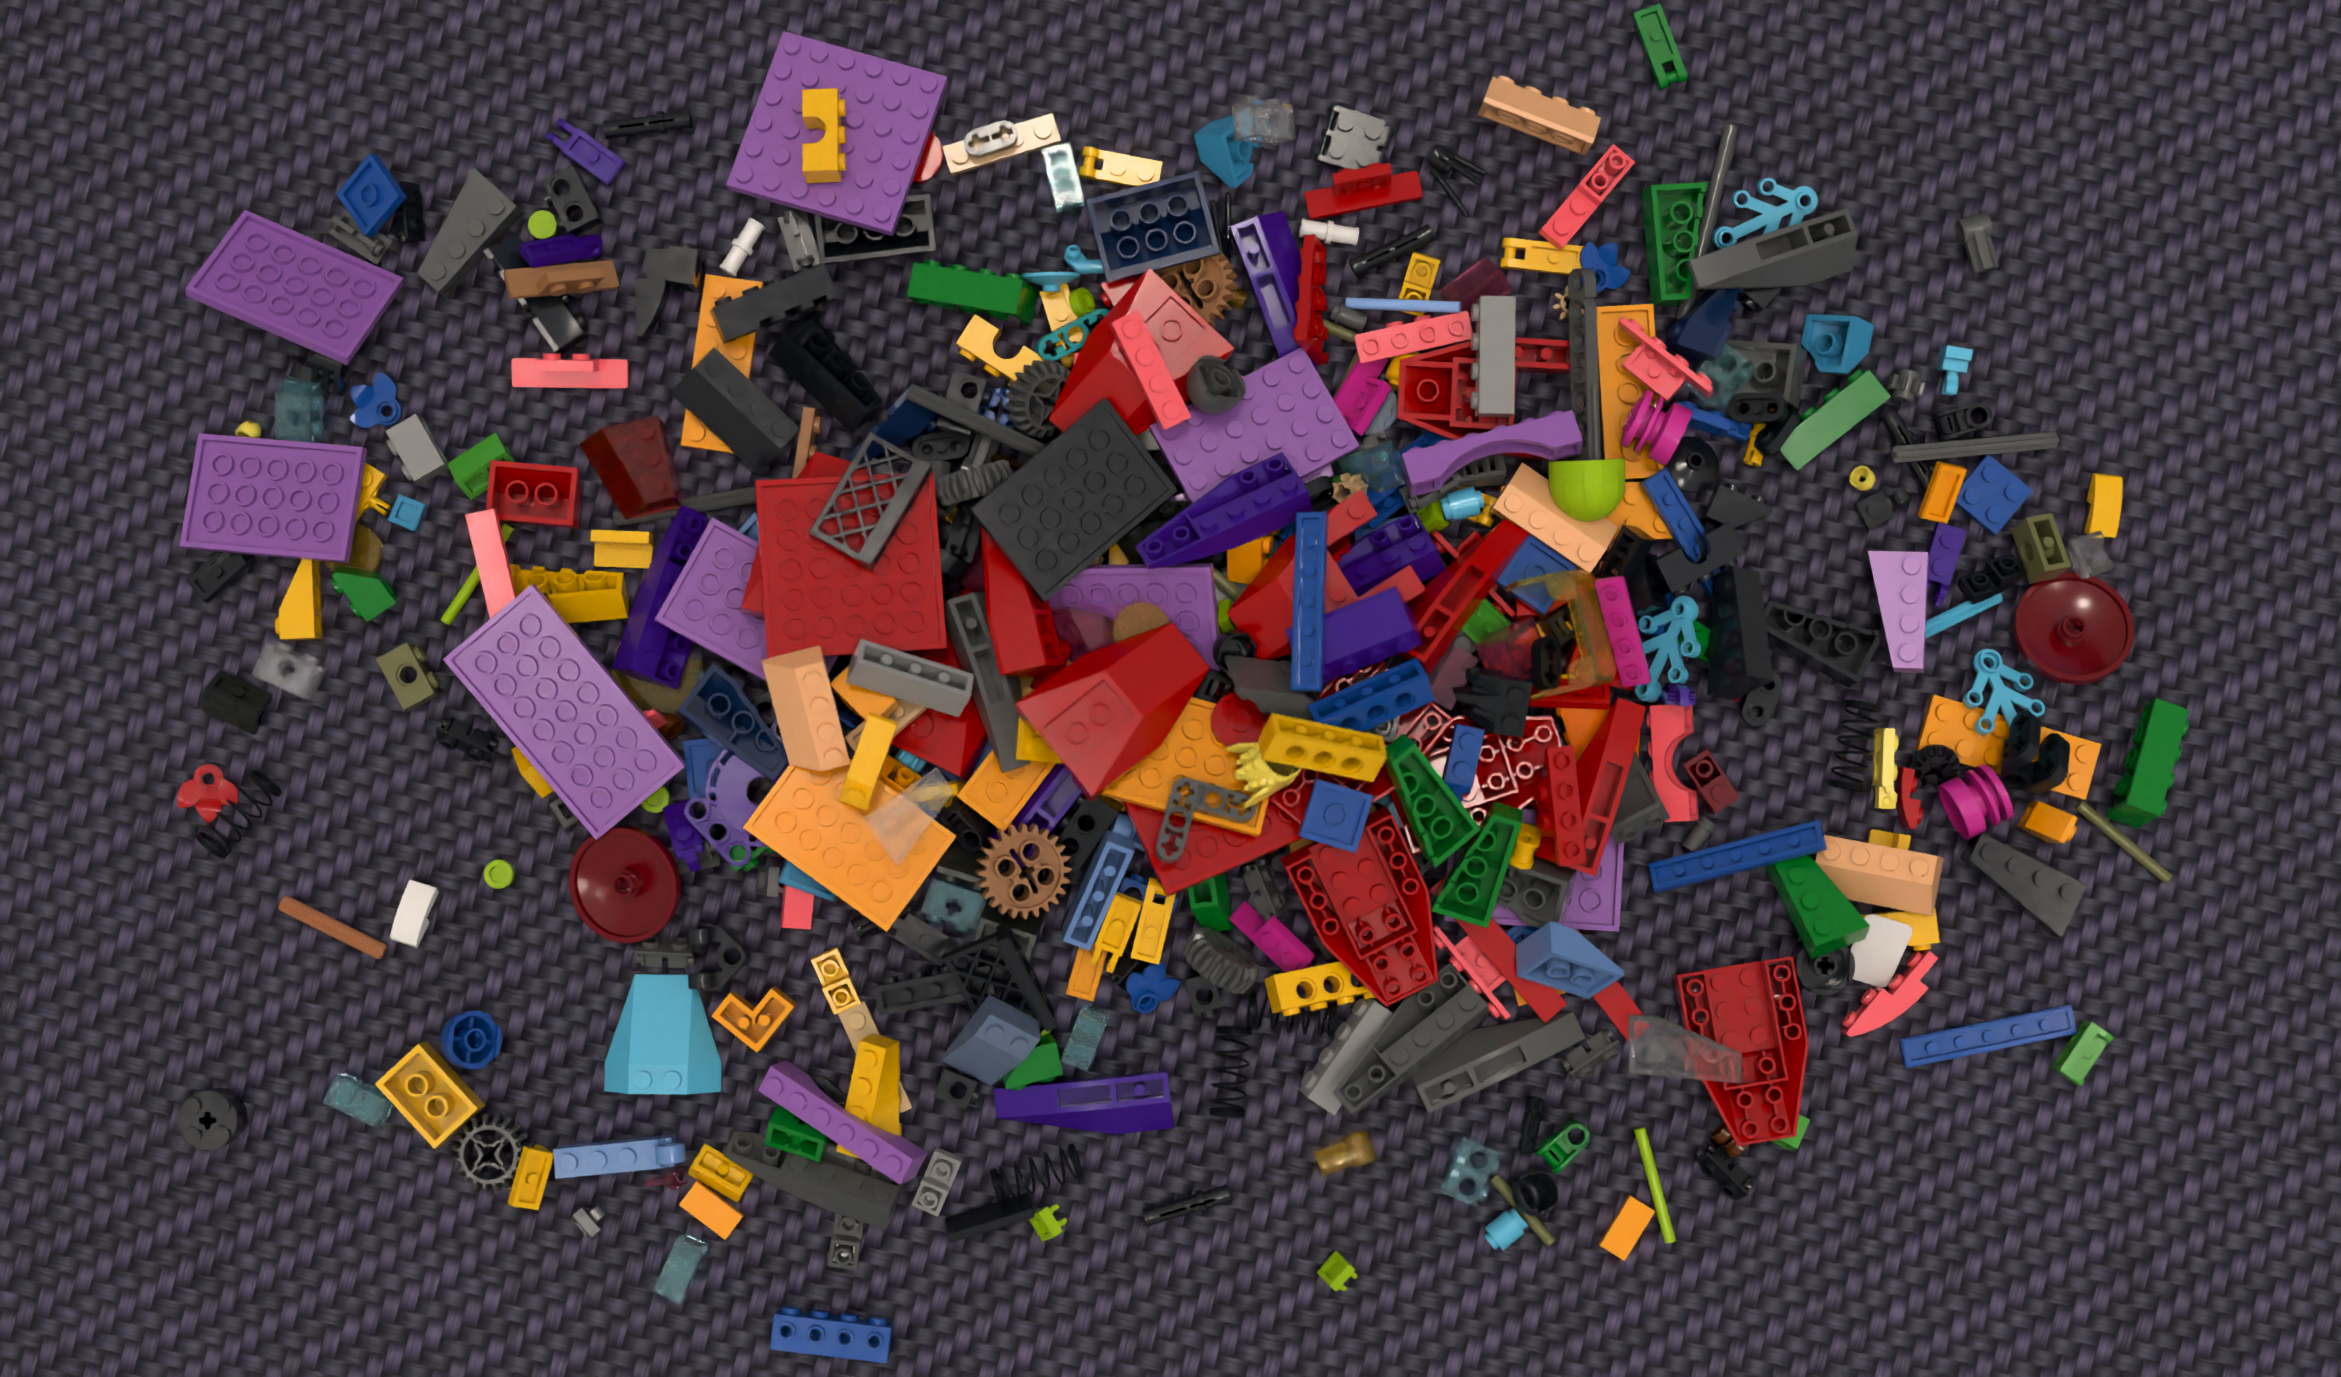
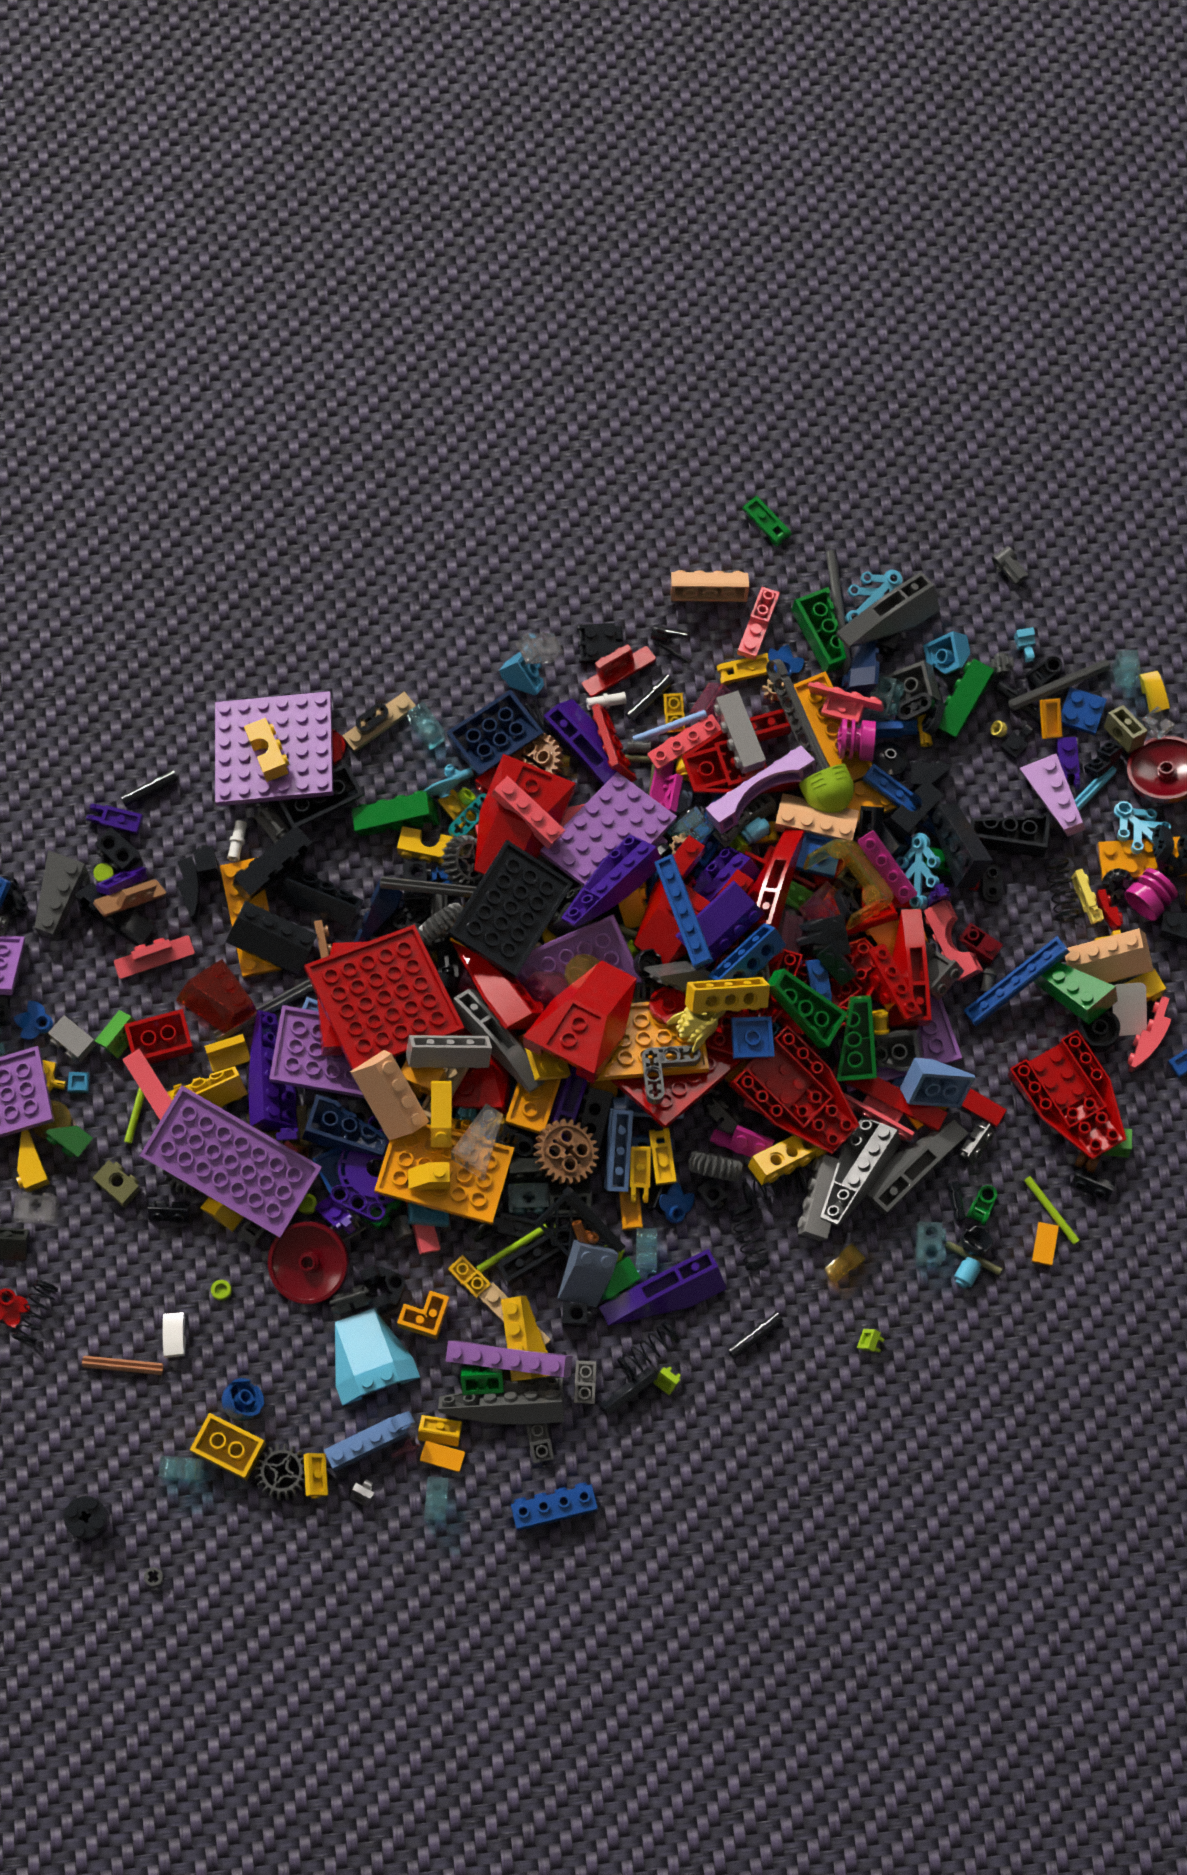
camera: 20 degrees left, 15 degrees down
(285, 1230) = (160, 1576): none -> dark grey bush
(655, 704) = (288, 1134): none -> dark purple hinge
(823, 838) = (429, 1176): none -> yellow slope
(894, 512) = (398, 959): black fence -> none
(900, 968) = (511, 1249): none -> lime bar
(1003, 995) = (584, 1235): none -> dark orange arm
(1119, 168) = (458, 710): yellow plate -> none
(1211, 903) = (693, 1133): green slope -> none
(1213, 386) = (571, 810): dark grey cylinder -> none
(1496, 746) = (837, 964): none -> black plate
(1673, 1051) = (1025, 1113): clear wedge -> none
(2079, 460) = (1126, 668): none -> clear light blue brick

